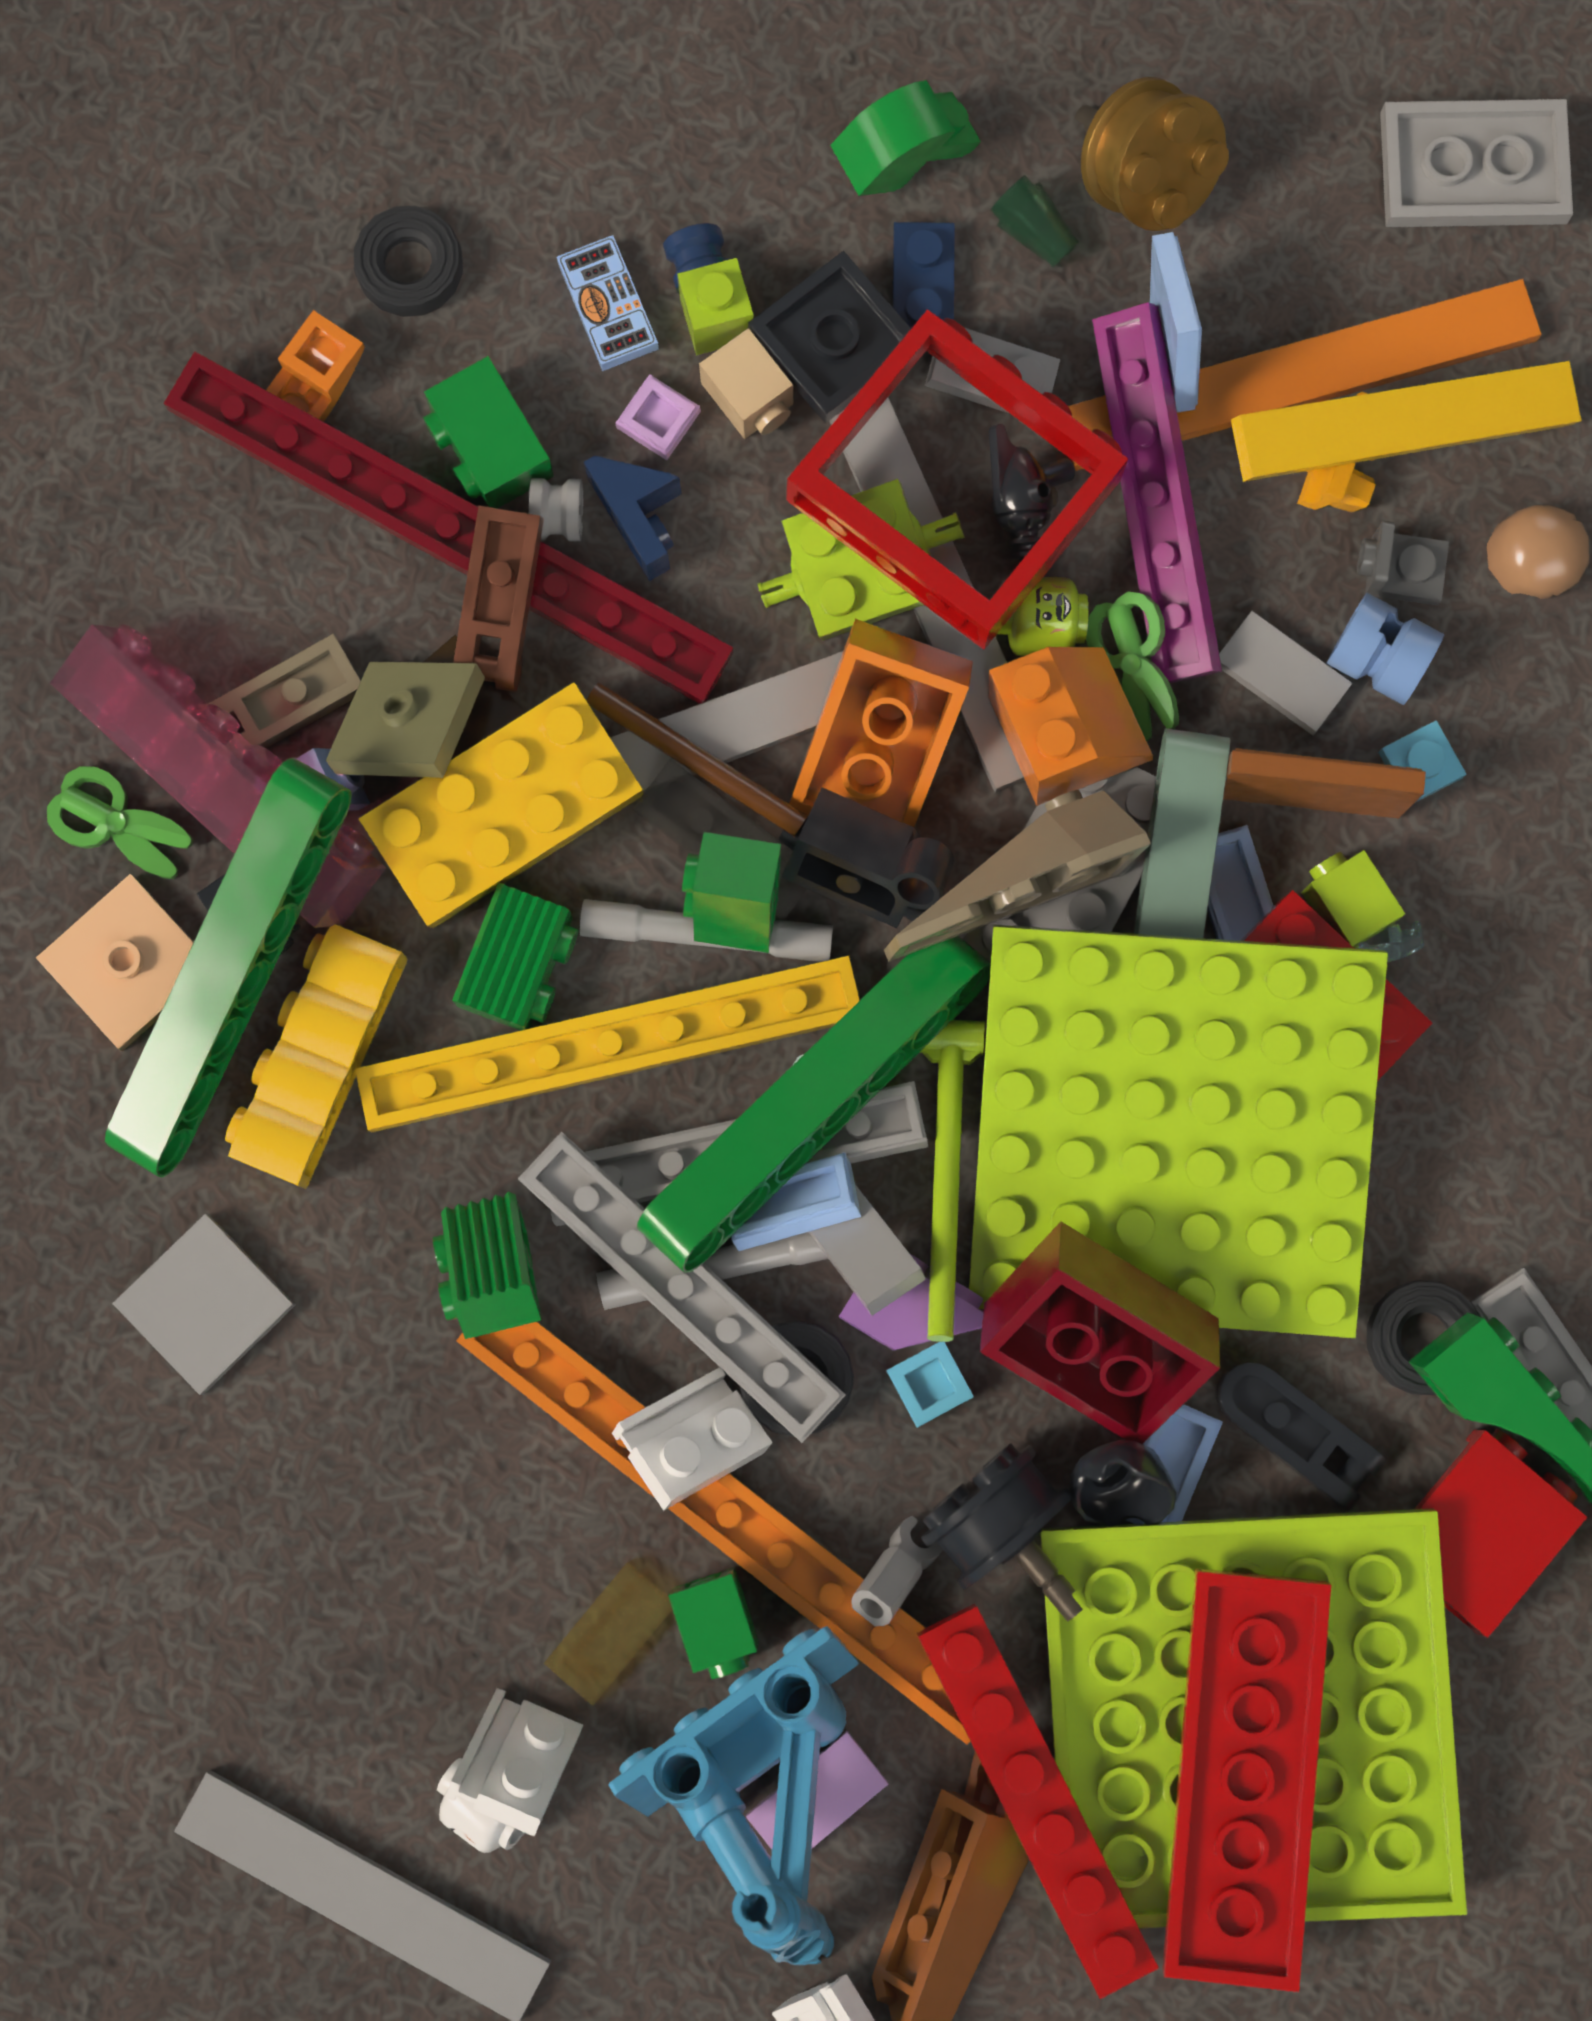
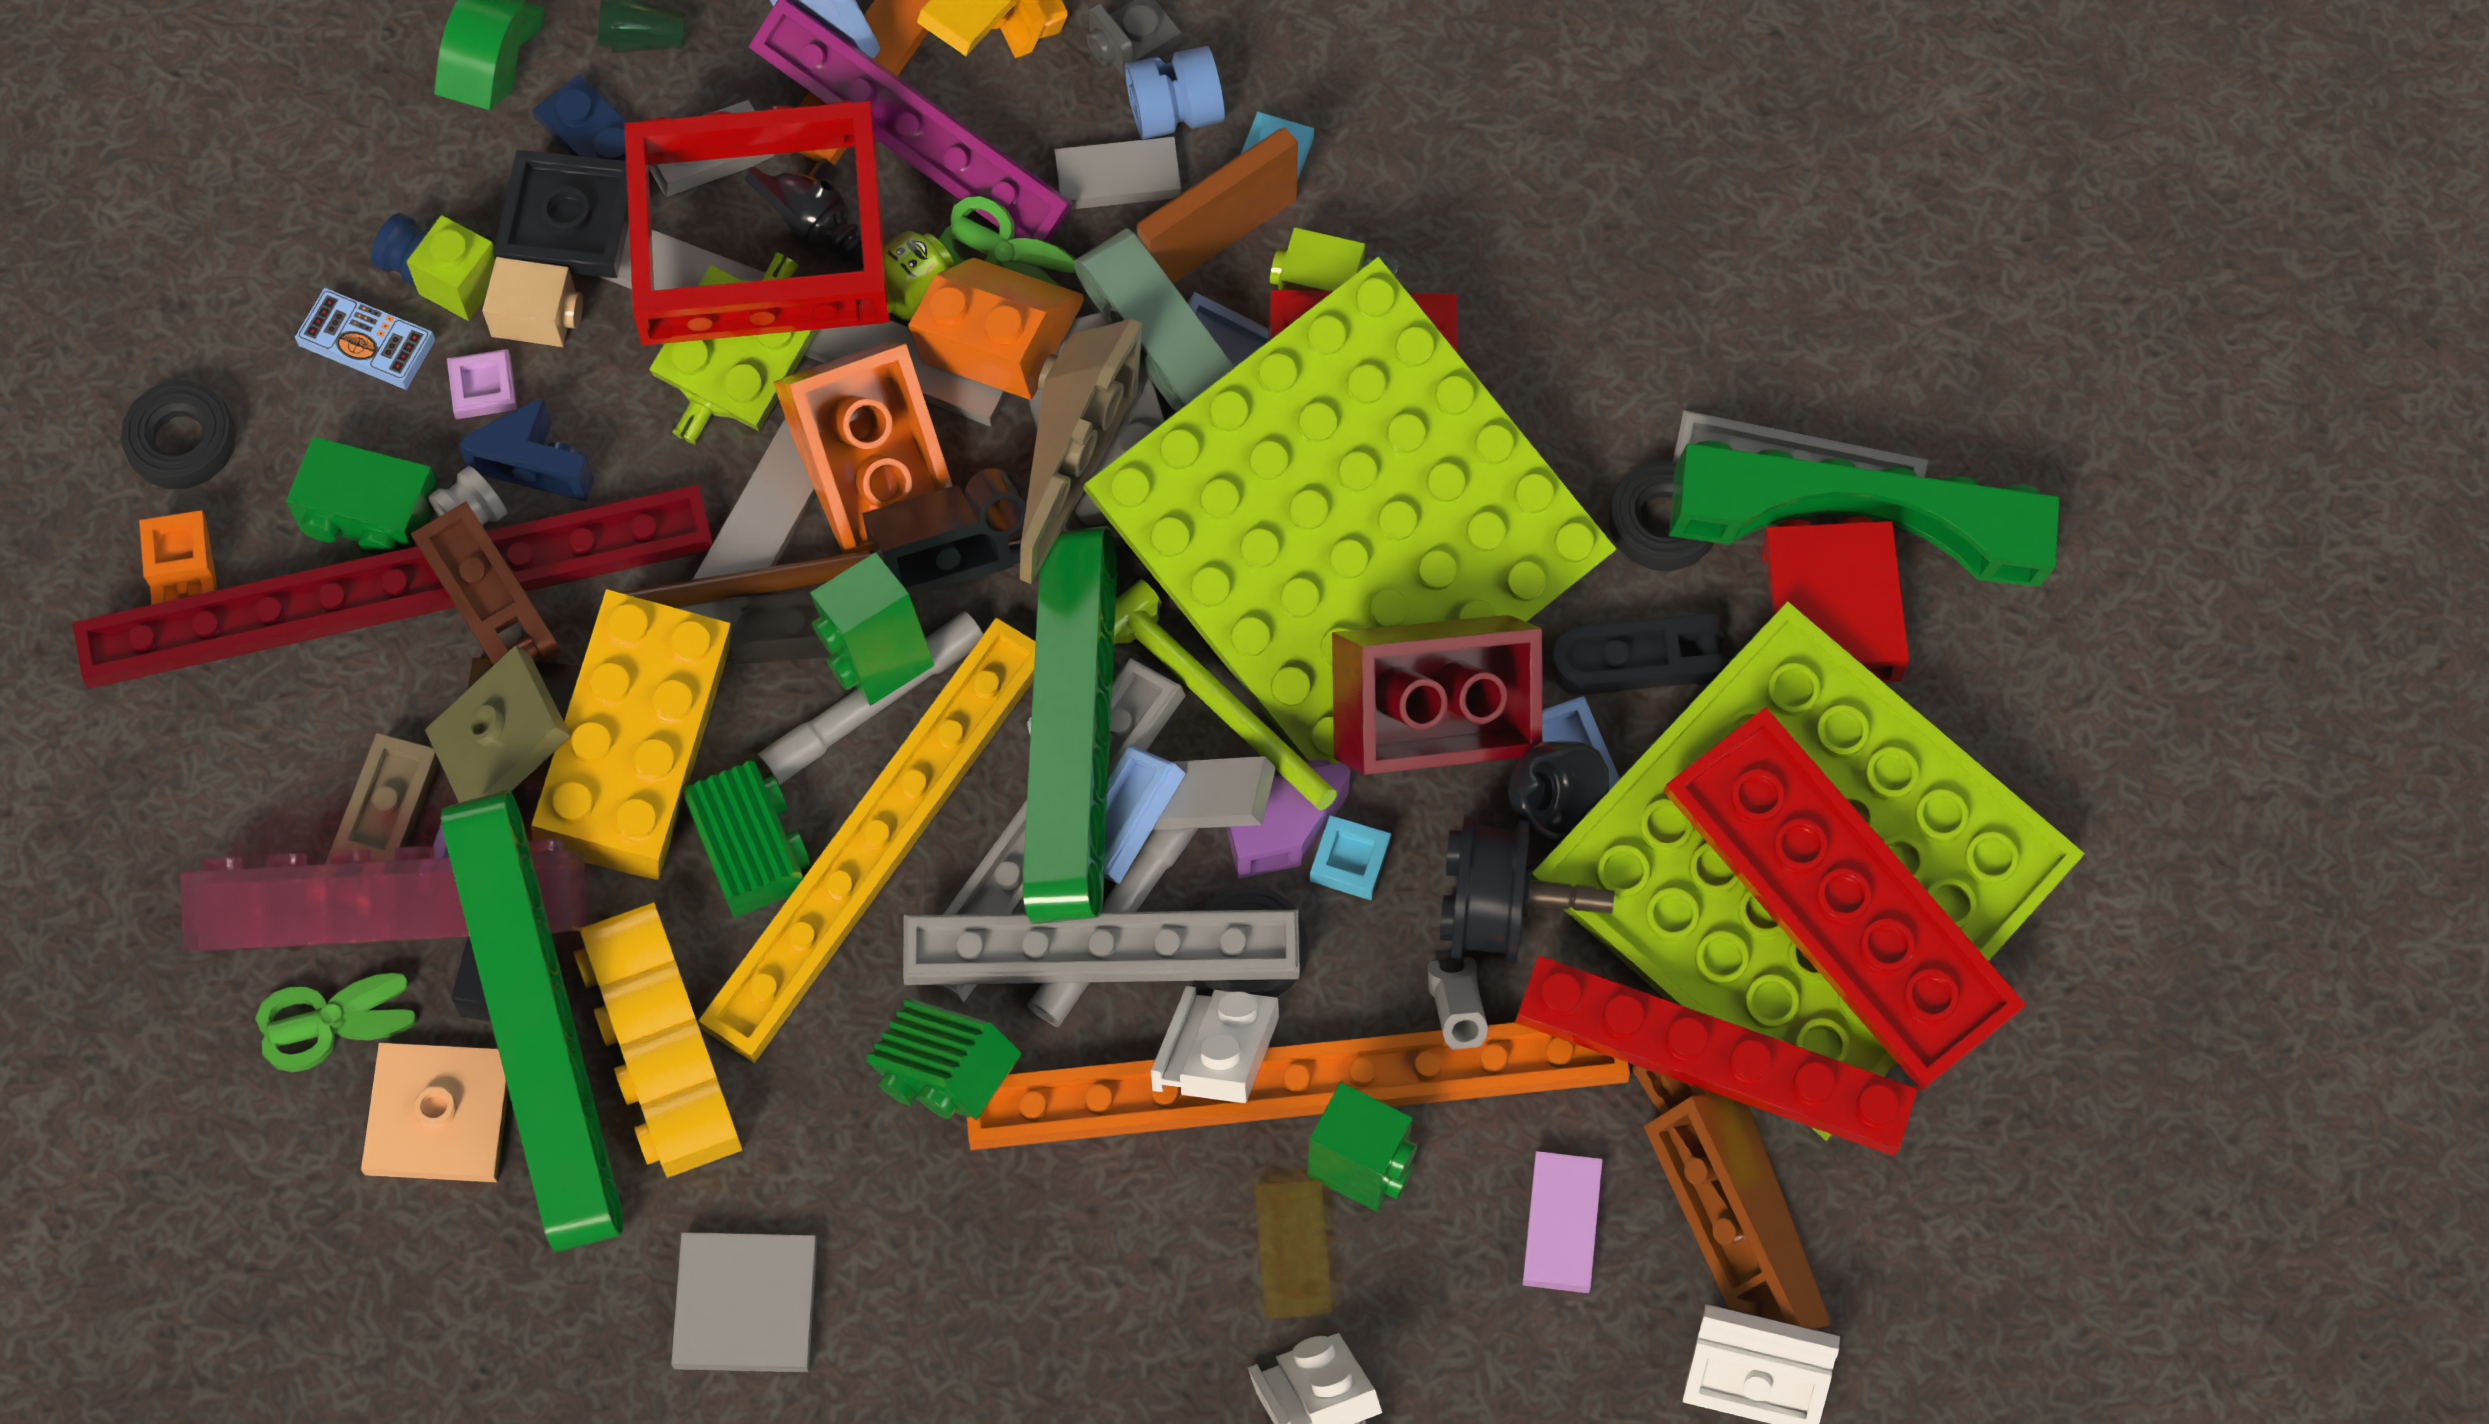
camera: 45 degrees left, 15 degrees down
(729, 1751) = (1456, 1232): dark azure plate -> none

